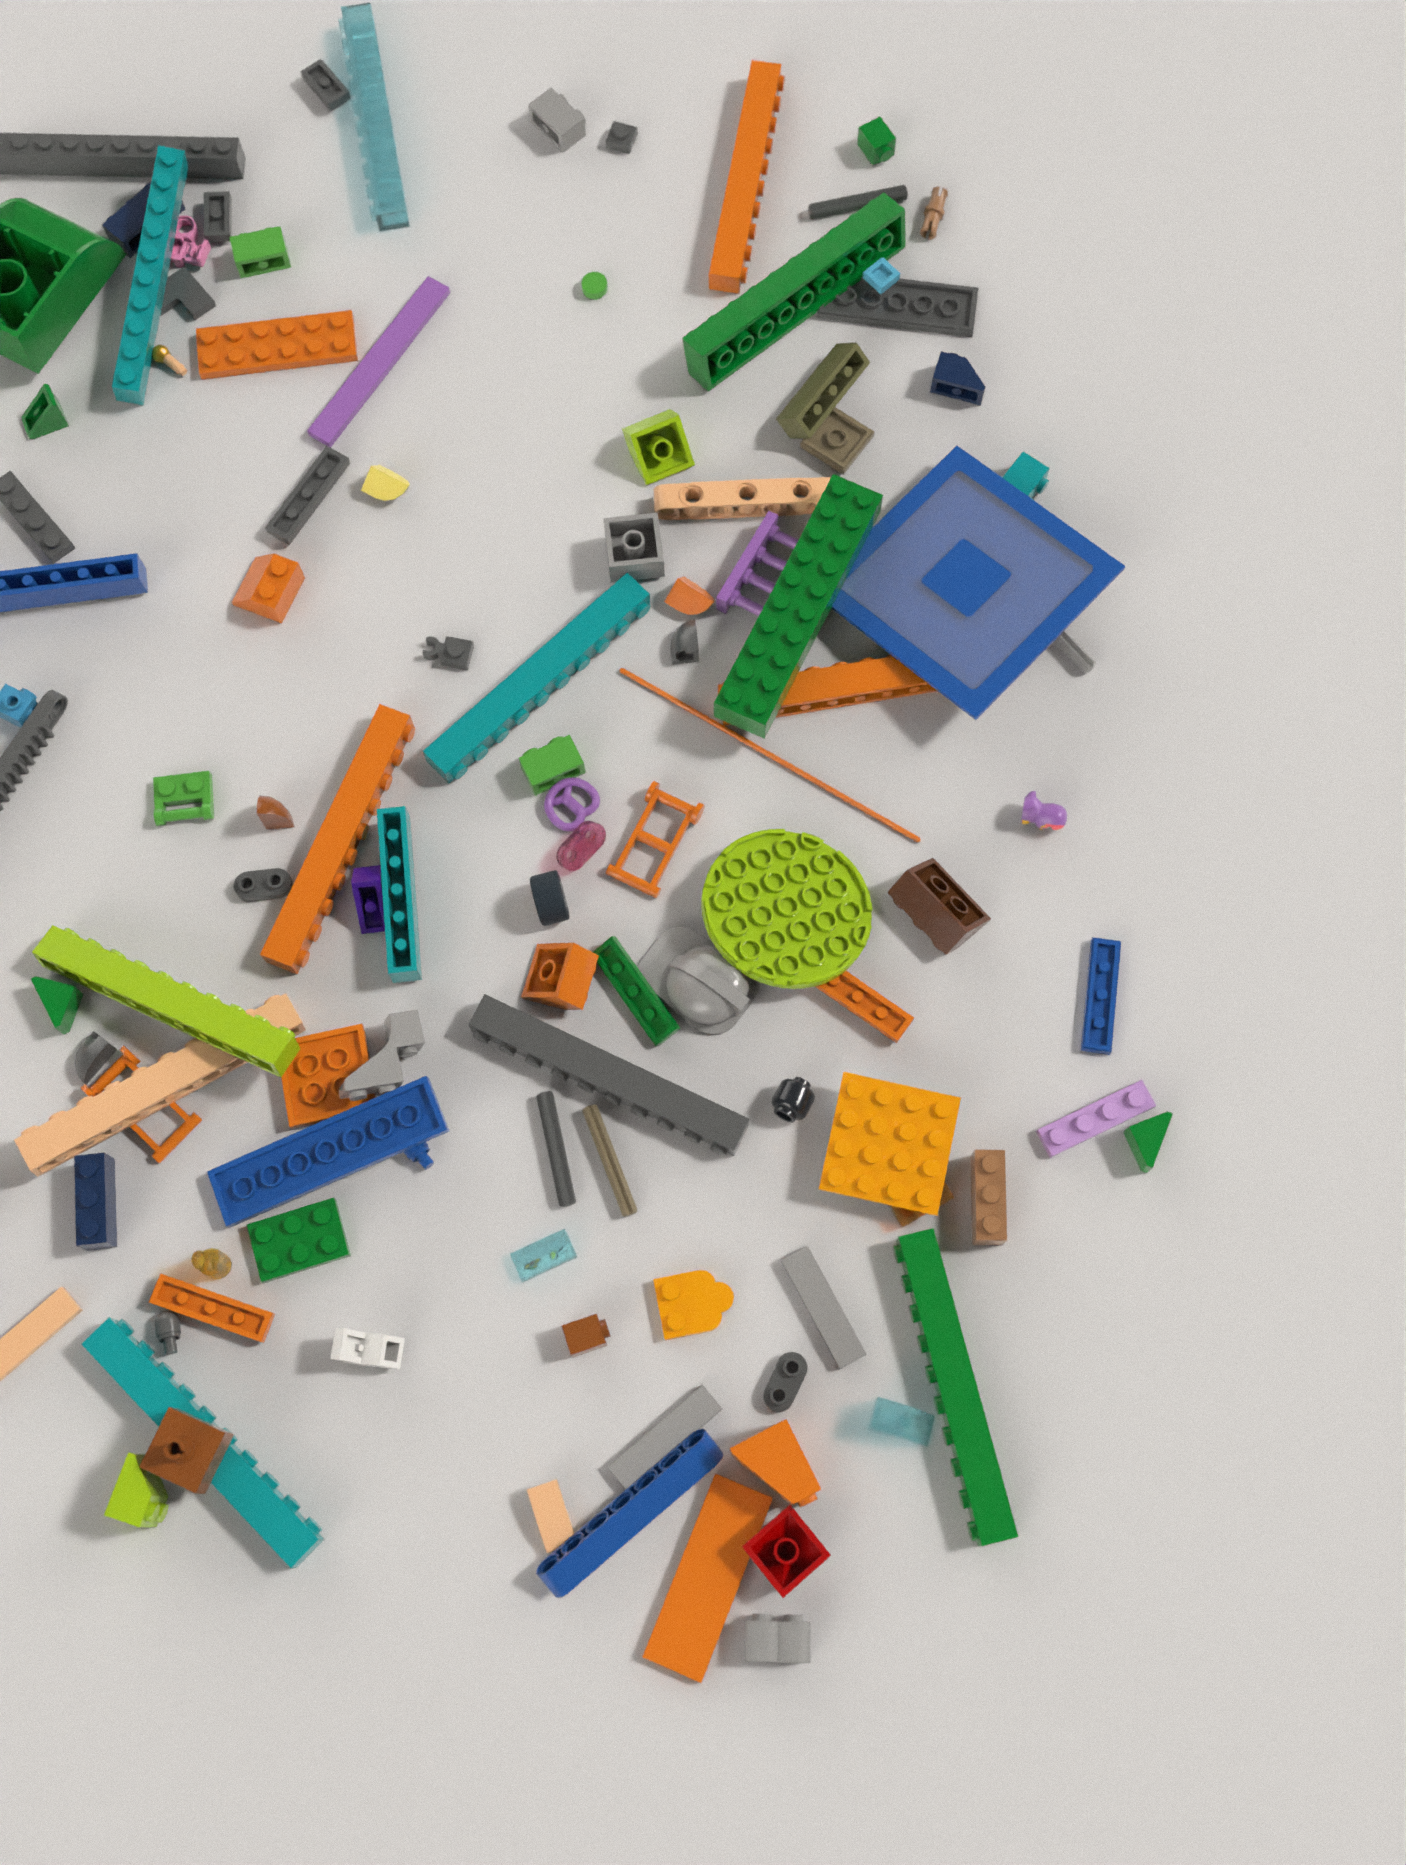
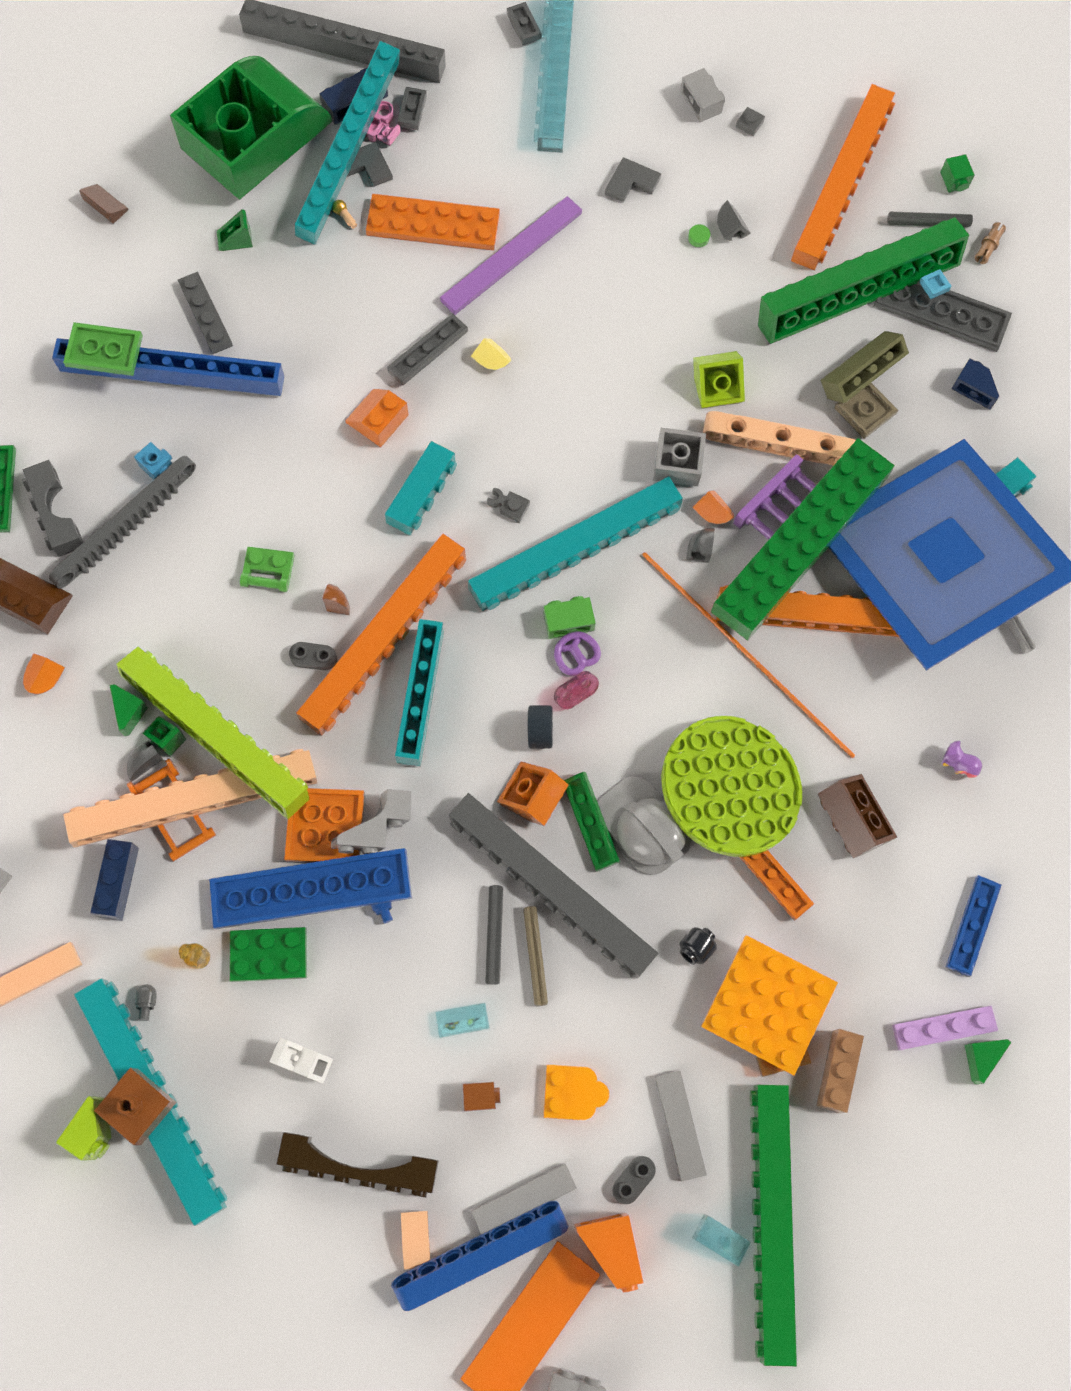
camera: 10 degrees right, 0 degrees up
(112, 1021) = (164, 735): none -> green slope
(212, 1308) = (185, 992): orange plate -> none
(260, 252) = (438, 144): bright green brick -> none
(341, 659) = (420, 488): none -> teal brick
(368, 898) = (394, 689): dark purple slope -> none
(392, 1454) = (299, 1153): none -> dark brown arch
(494, 234) = (631, 174): none -> dark grey tile
(628, 261) = (731, 223): none -> dark grey brick
(653, 796) = (672, 689): orange piece -> none
(786, 1551) = (601, 1324): red slope -> none

